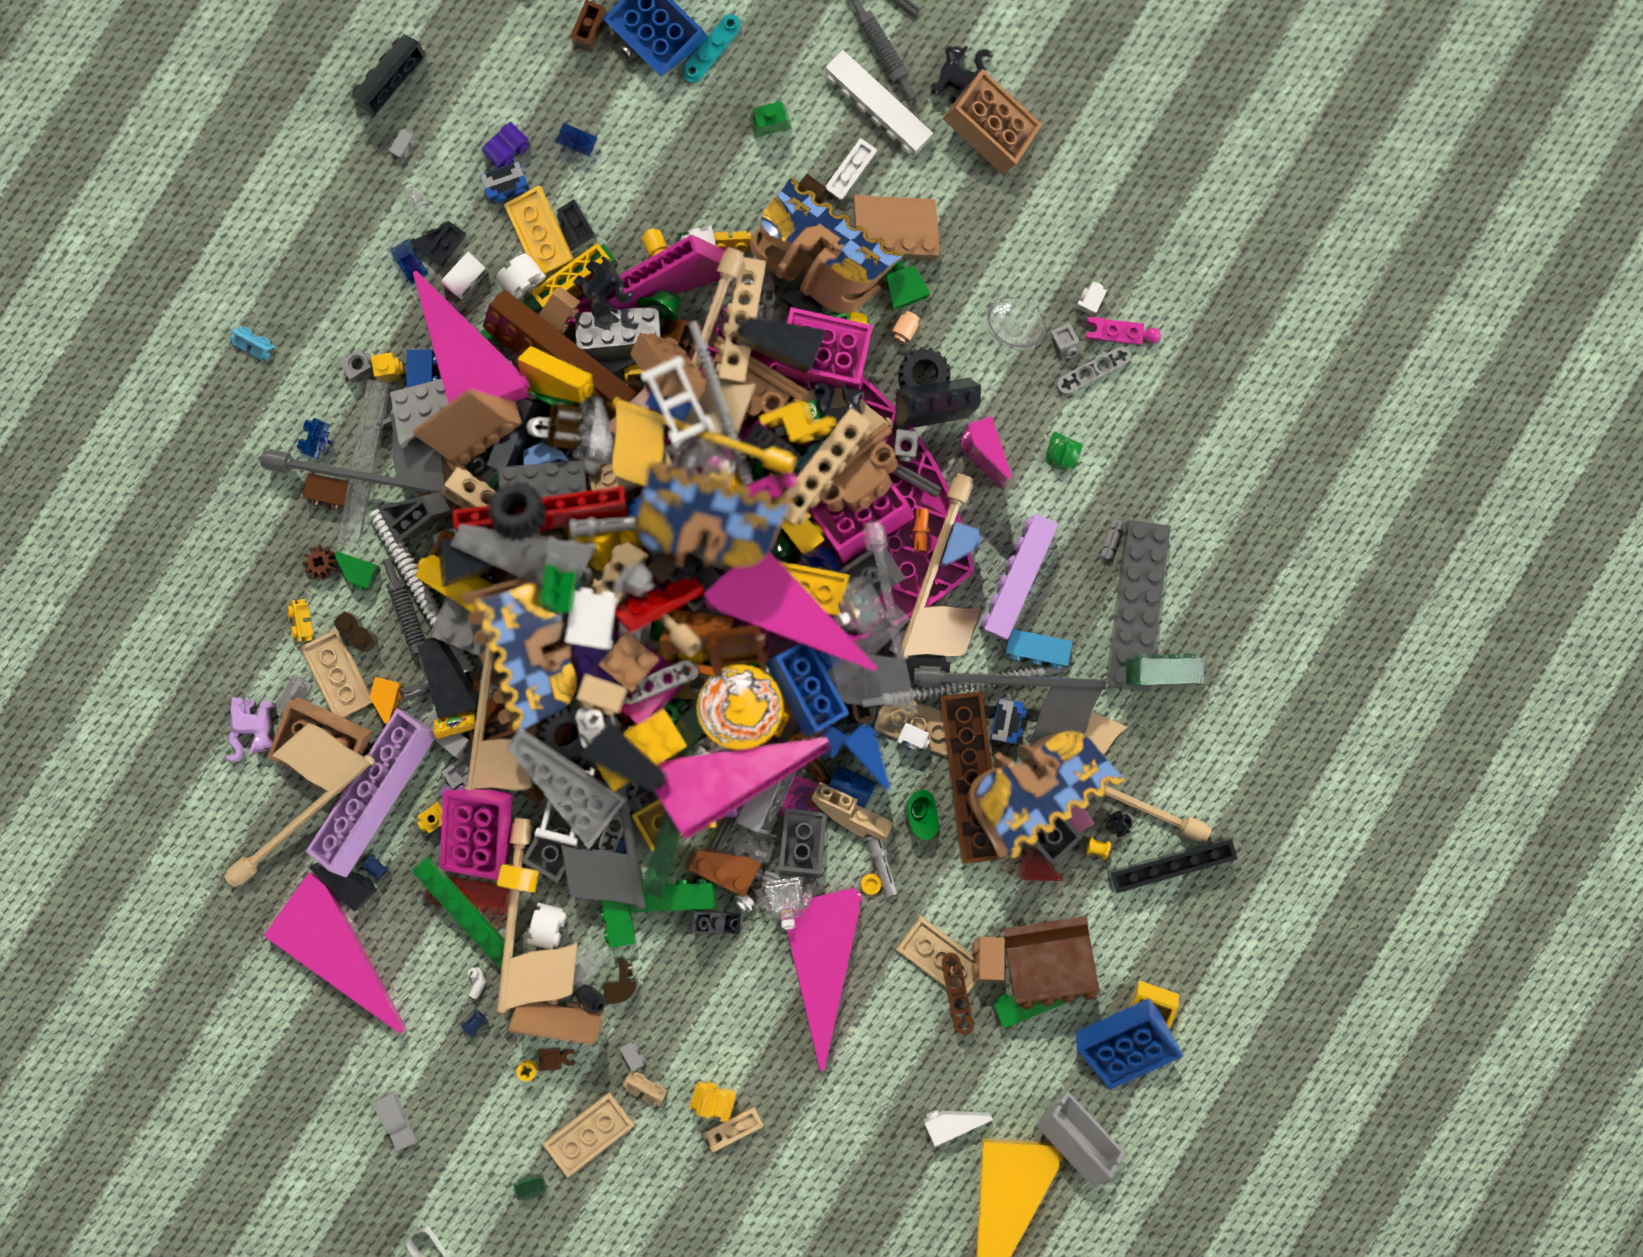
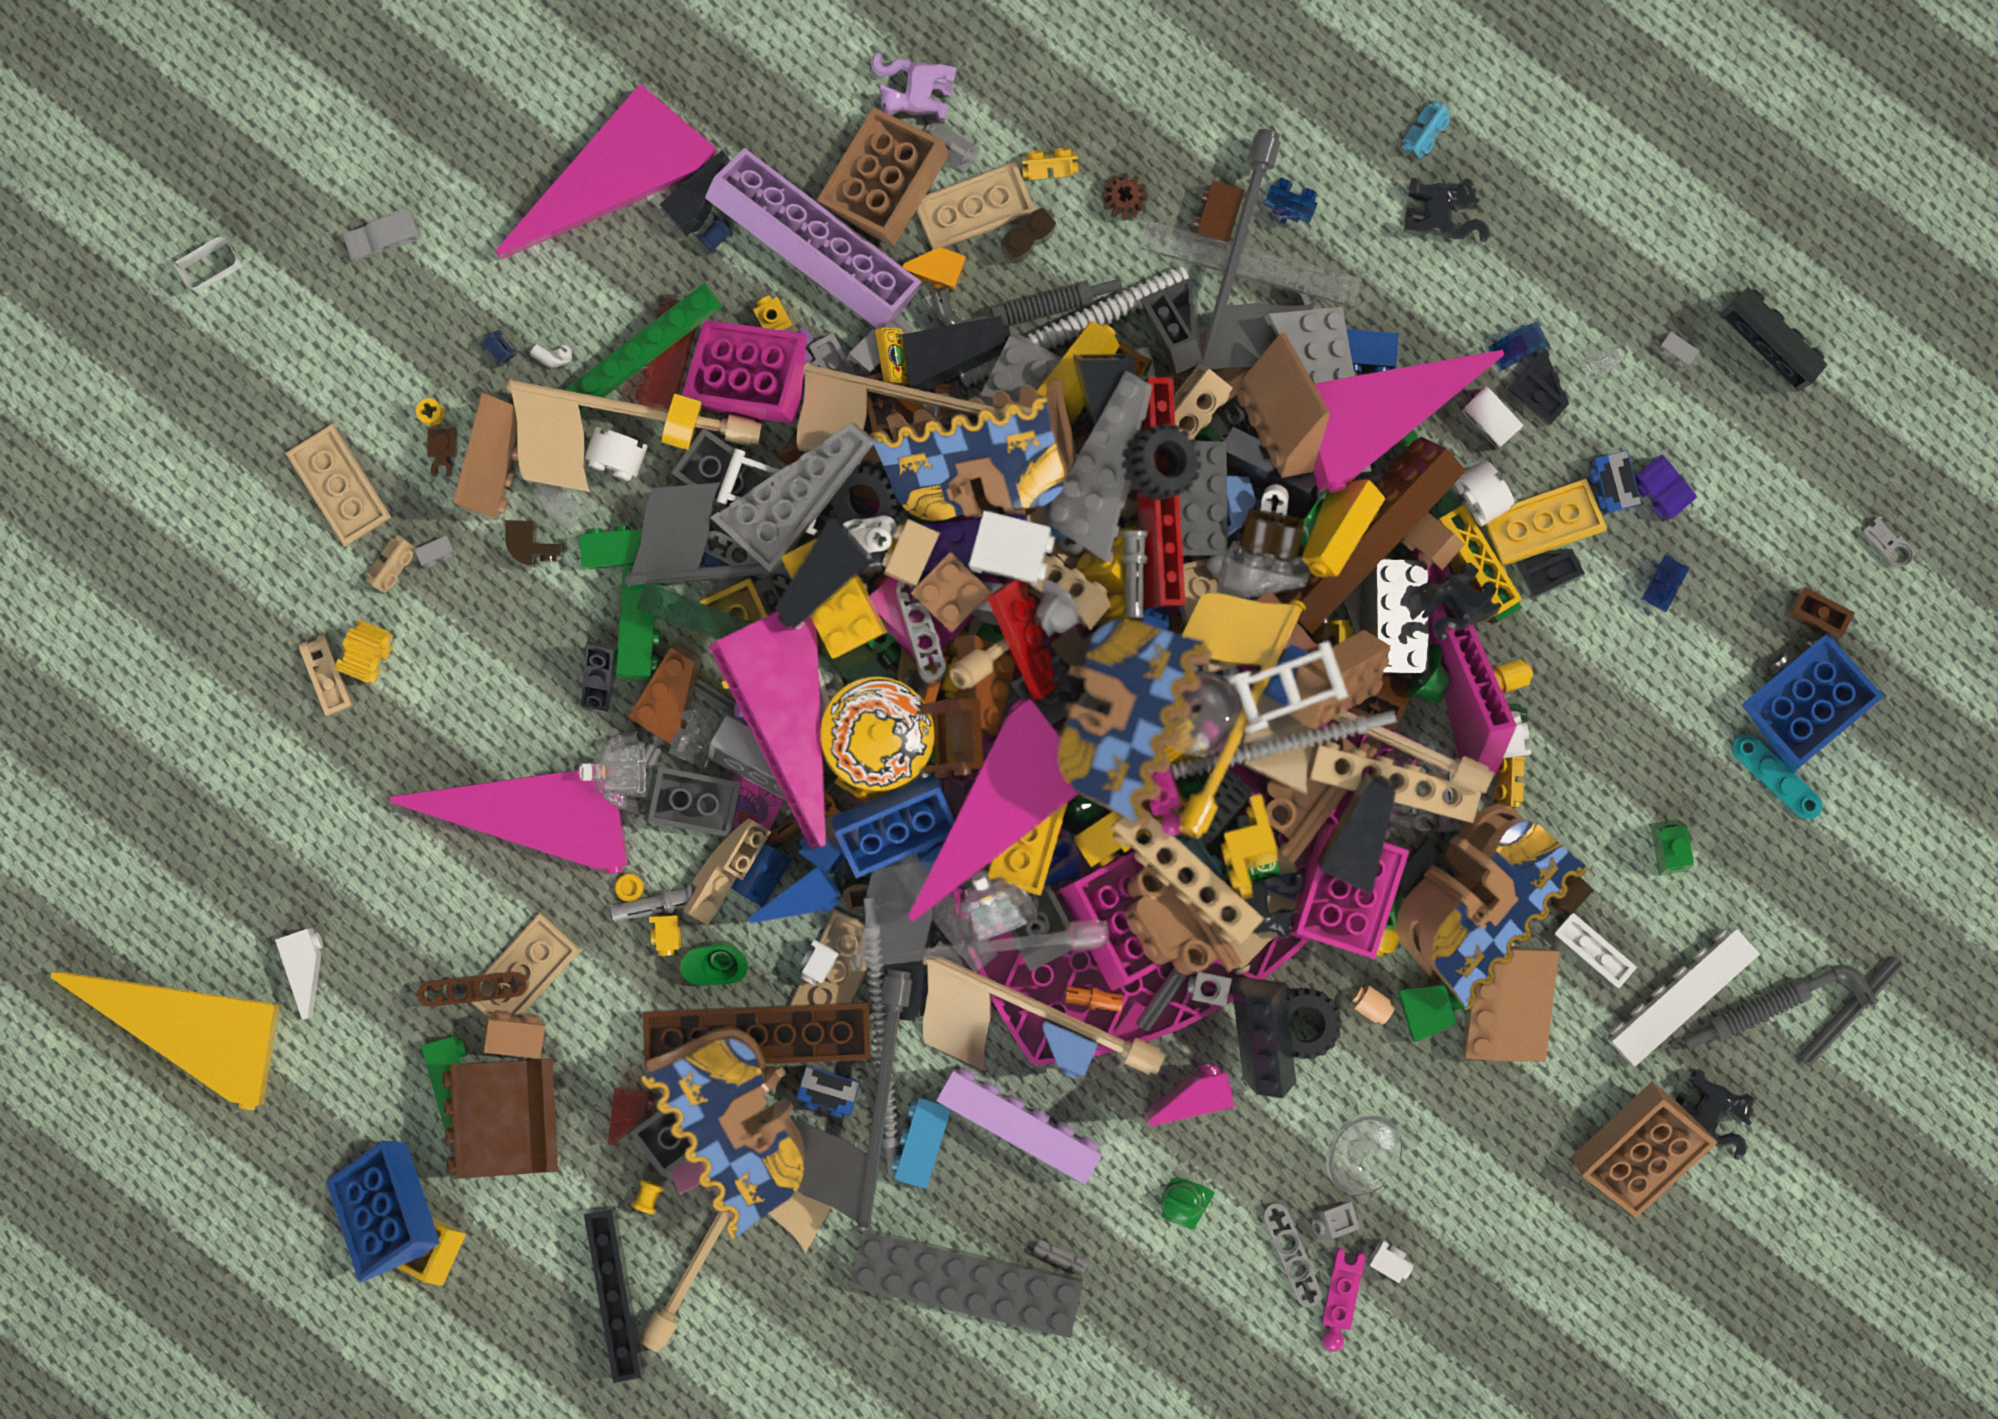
camera: 100 degrees right, 0 degrees up
(311, 328) = (1438, 212): none -> black animal
(322, 762) = (859, 177): tan flag -> none
(348, 365) = (1384, 254): light grey brick -> none
(357, 571) = (1108, 244): green slope -> none
(387, 367) = (1376, 306): yellow brick -> none
(529, 1187) = (278, 402): clear green brick -> none
(557, 590) = (1052, 506): green bracket -> none
(590, 998) = (514, 503): black brick -> none
(744, 903) = (620, 717): white plate -> none
(903, 853) = (666, 934): none -> yellow brick
(1081, 1139) = (263, 1134): light grey piece -> none
(1119, 823) = (676, 1228): black gear -> none
(1163, 670) = (875, 1310): clear green brick -> none

